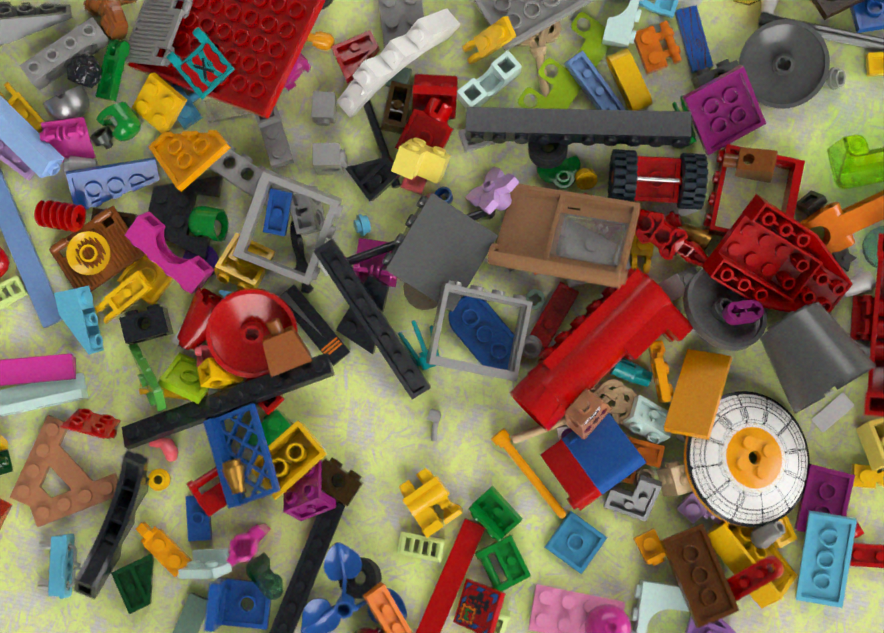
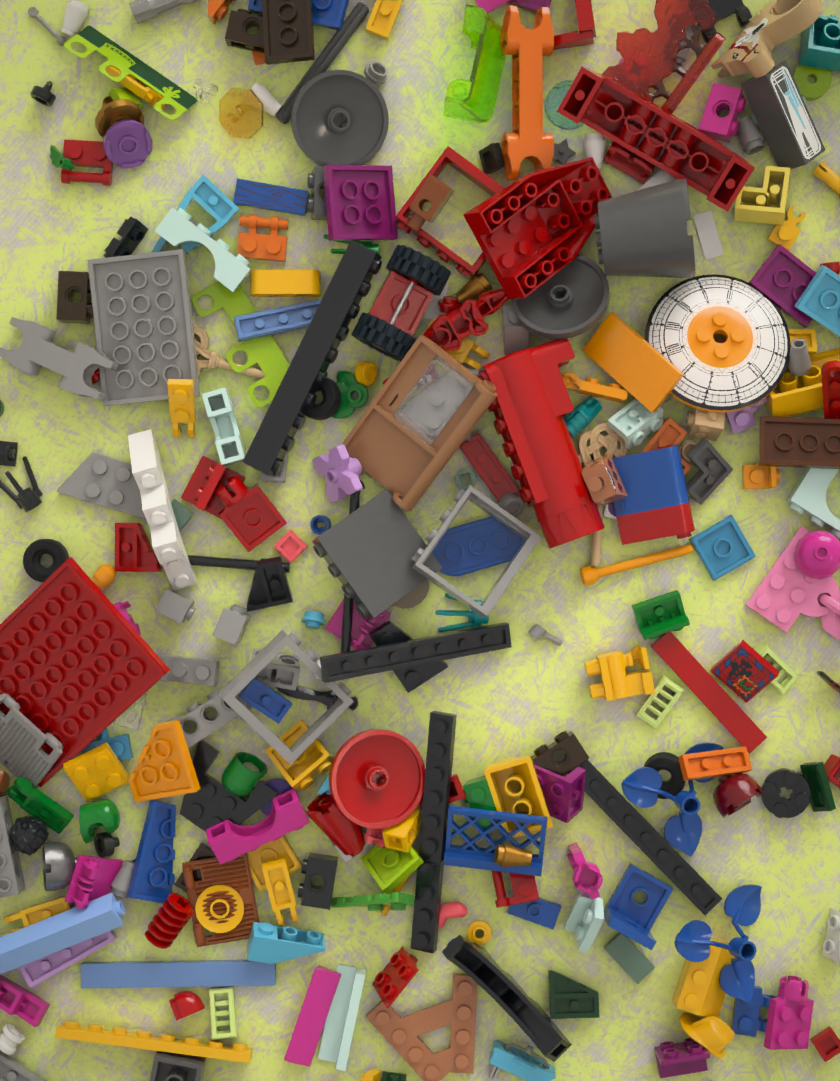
camera: 75 degrees left, 5 degrees up
(163, 548) = (549, 956): light orange hinge -> none
(204, 67) = (83, 710): flag -> none
(263, 577) = (624, 869): leg -> none
(284, 348) = (408, 753): dark orange torso -> none
(314, 325) = (393, 712): black tile -> none
(396, 107) = (209, 532): dark brown brick -> none
(421, 160) = (276, 532): light yellow brick -> none
(509, 561) = (712, 621): green plate -> none
(744, 316) = (568, 280): magenta beam -> none

